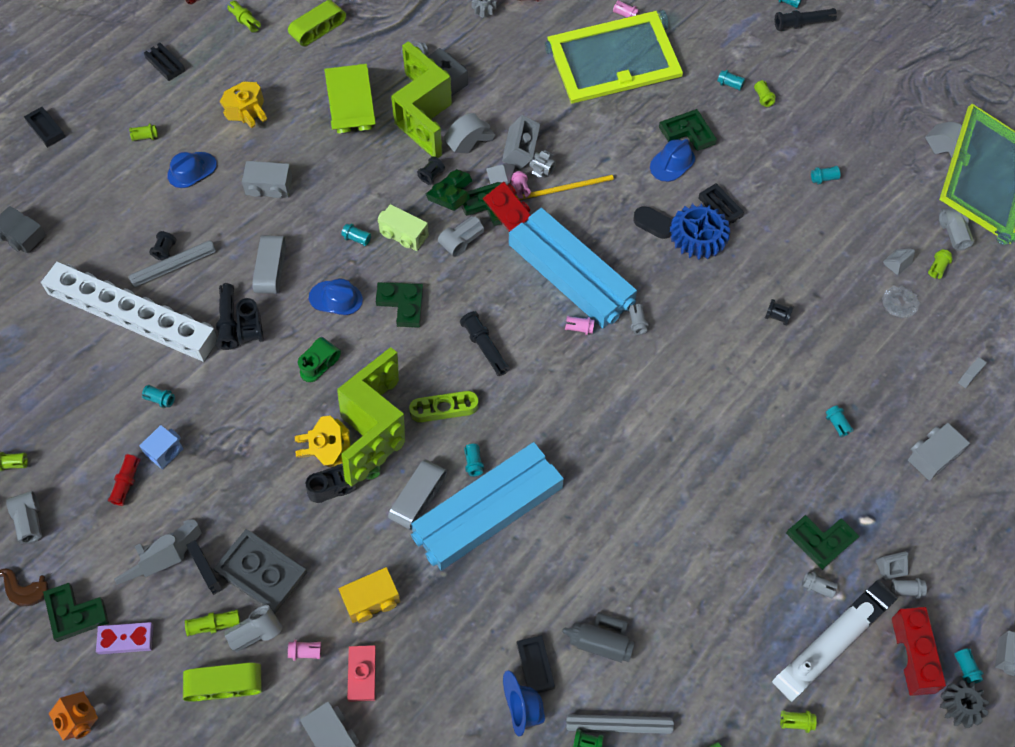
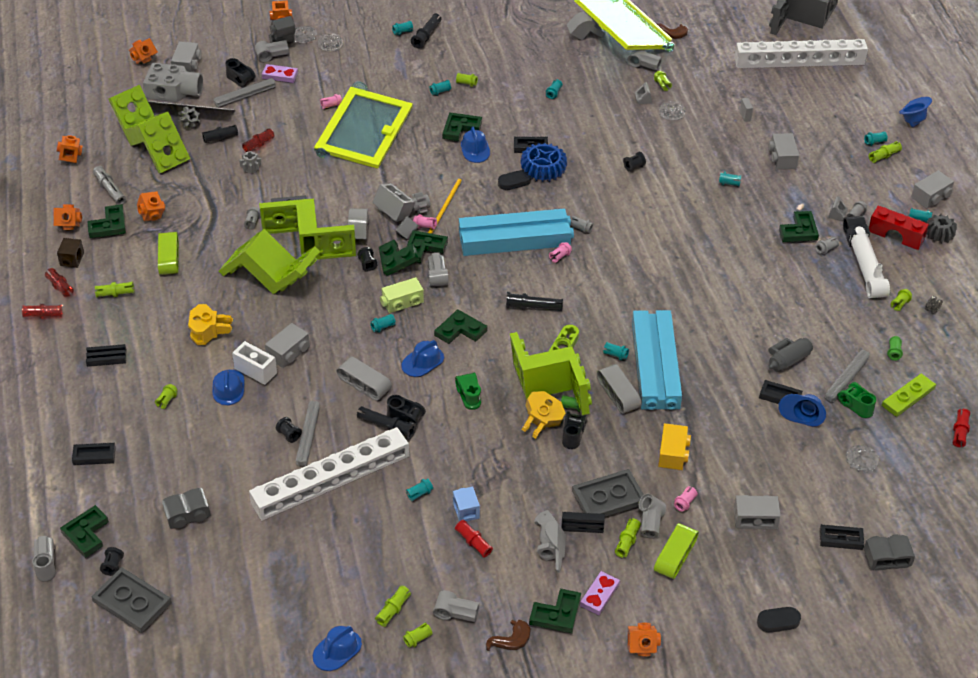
camera: 55 degrees left, 15 degrees down
(220, 168) = (254, 363): none -> white brick
(361, 673) = (723, 479): coral plate -> none
(507, 206) = (441, 233): red bracket -> none

